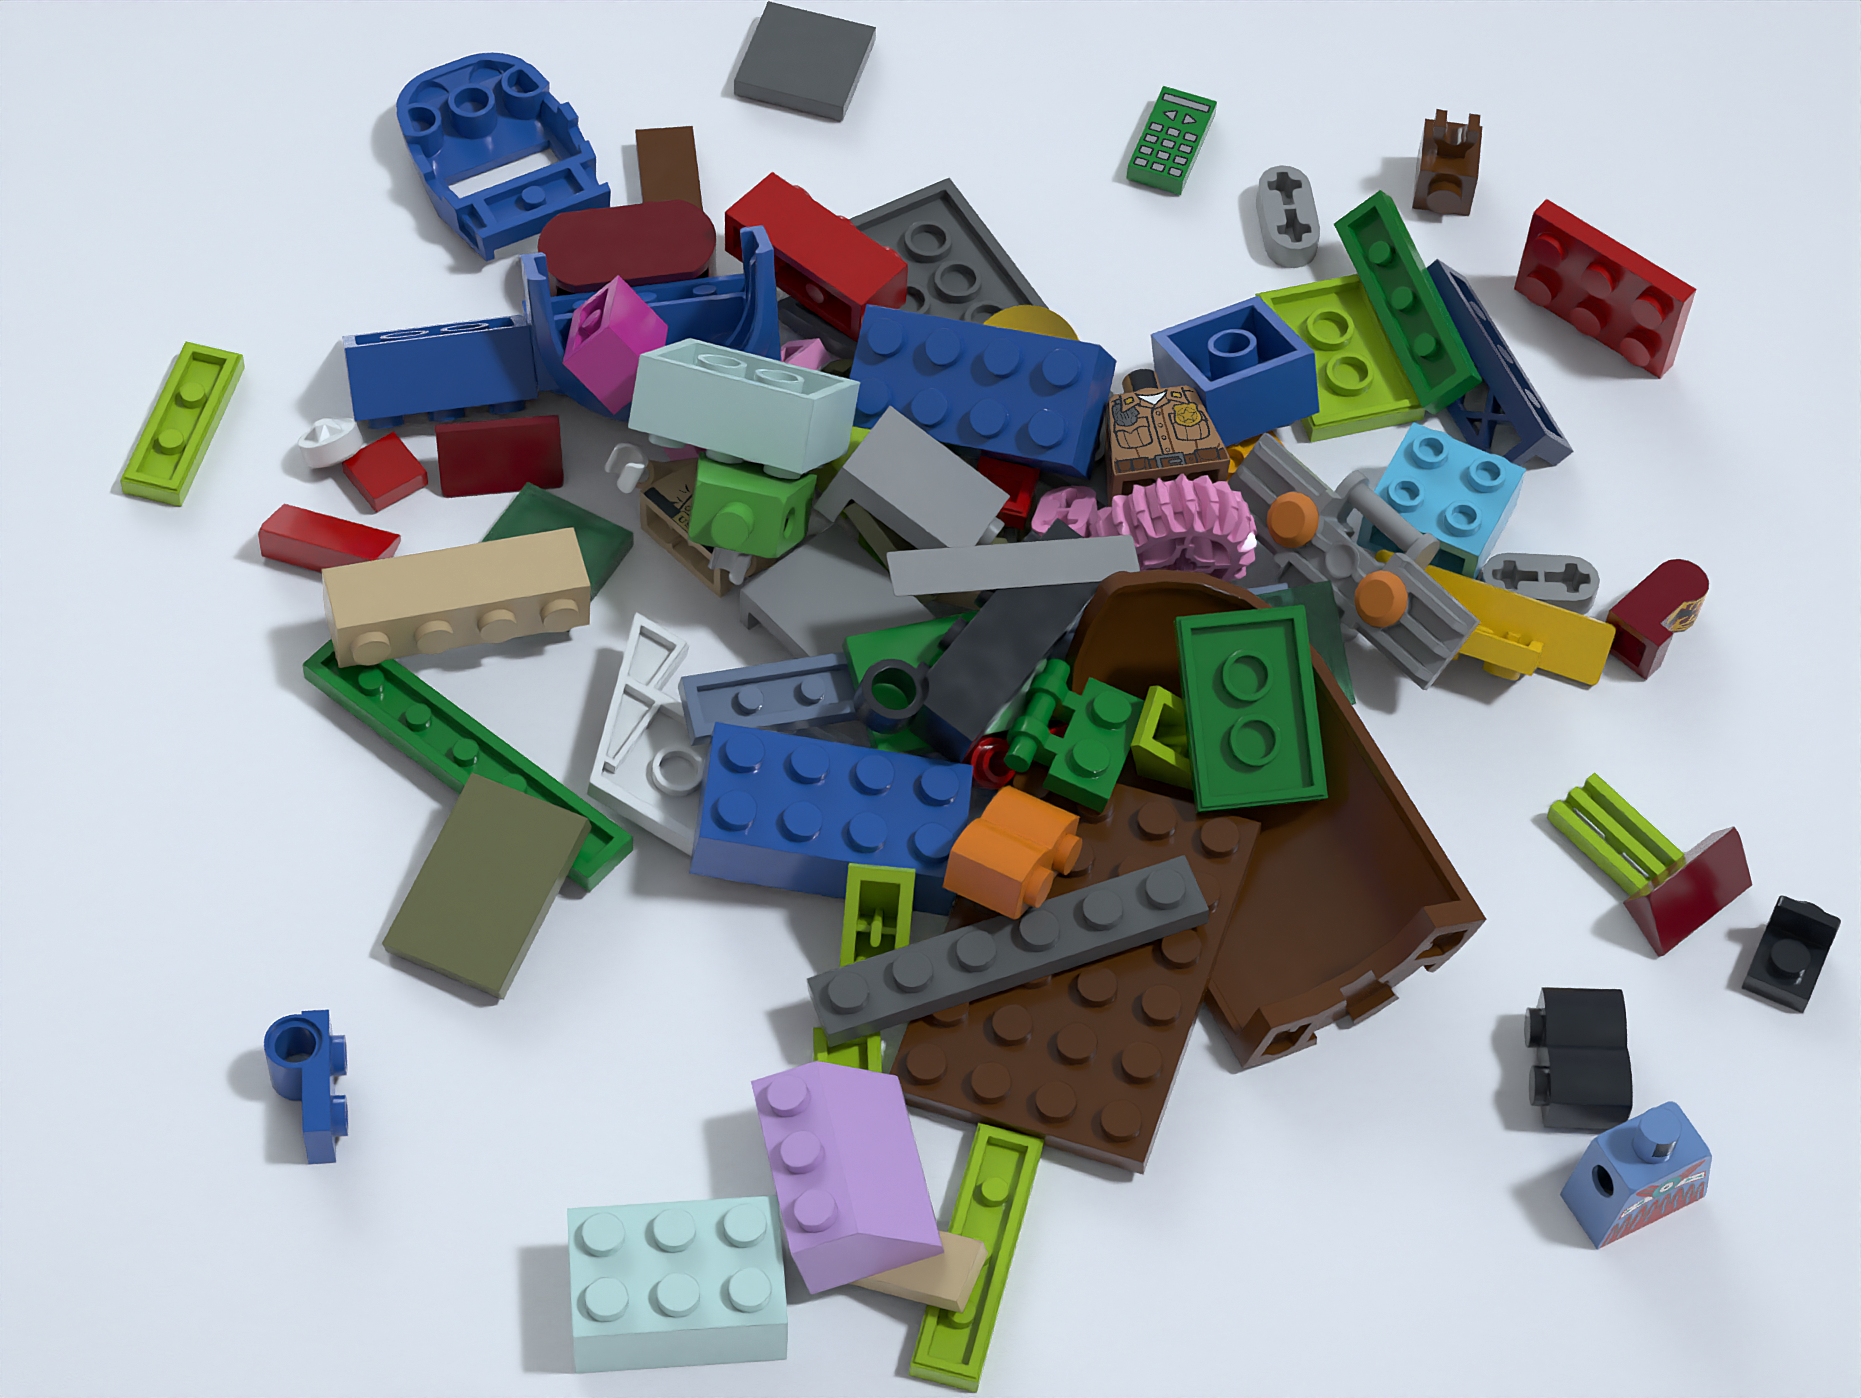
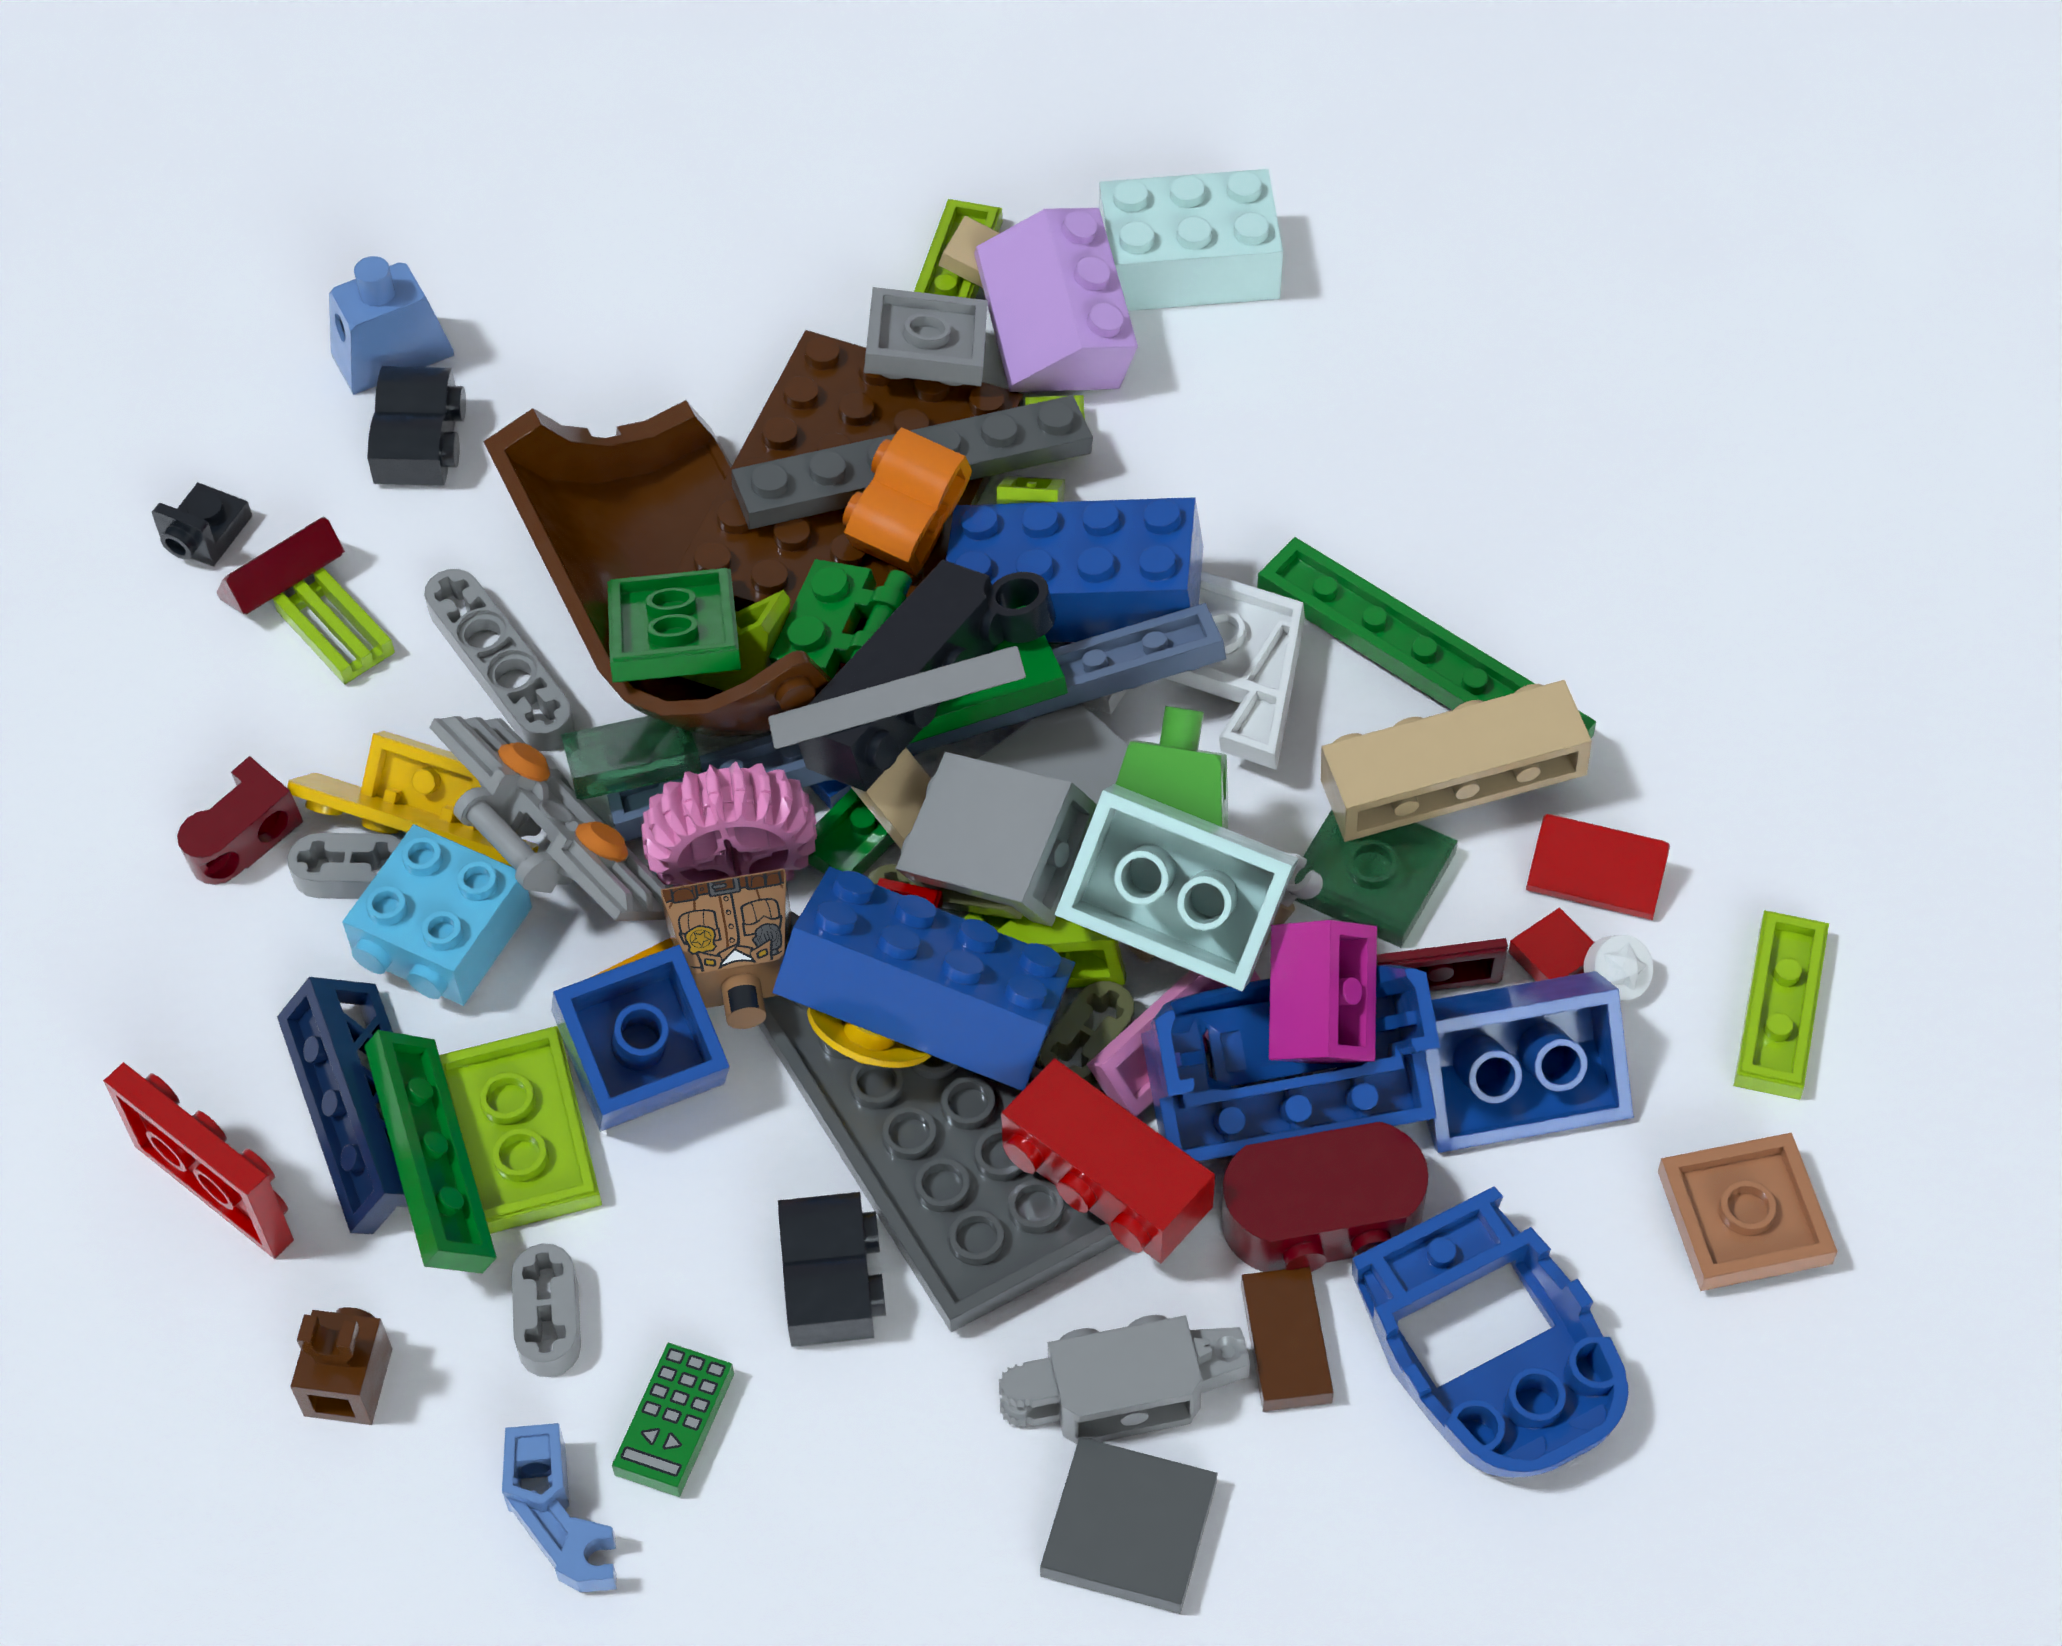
camera: 175 degrees left, 0 degrees up
(263, 245) = (1746, 1211): none -> nougat plate
(312, 1079) = (1518, 386): blue plate -> none
(487, 885) = (1385, 530): olive tile -> none
(808, 136) = (1123, 1378): none -> light grey hinge
(999, 1114) = (926, 337): none -> light grey plate
(1053, 224) = (827, 1269): none -> black brick
(1070, 504) = (824, 851): bright pink beam -> none
(1275, 89) = (563, 1540): none -> medium blue piece
(1444, 788) = (495, 660): none -> light grey beam

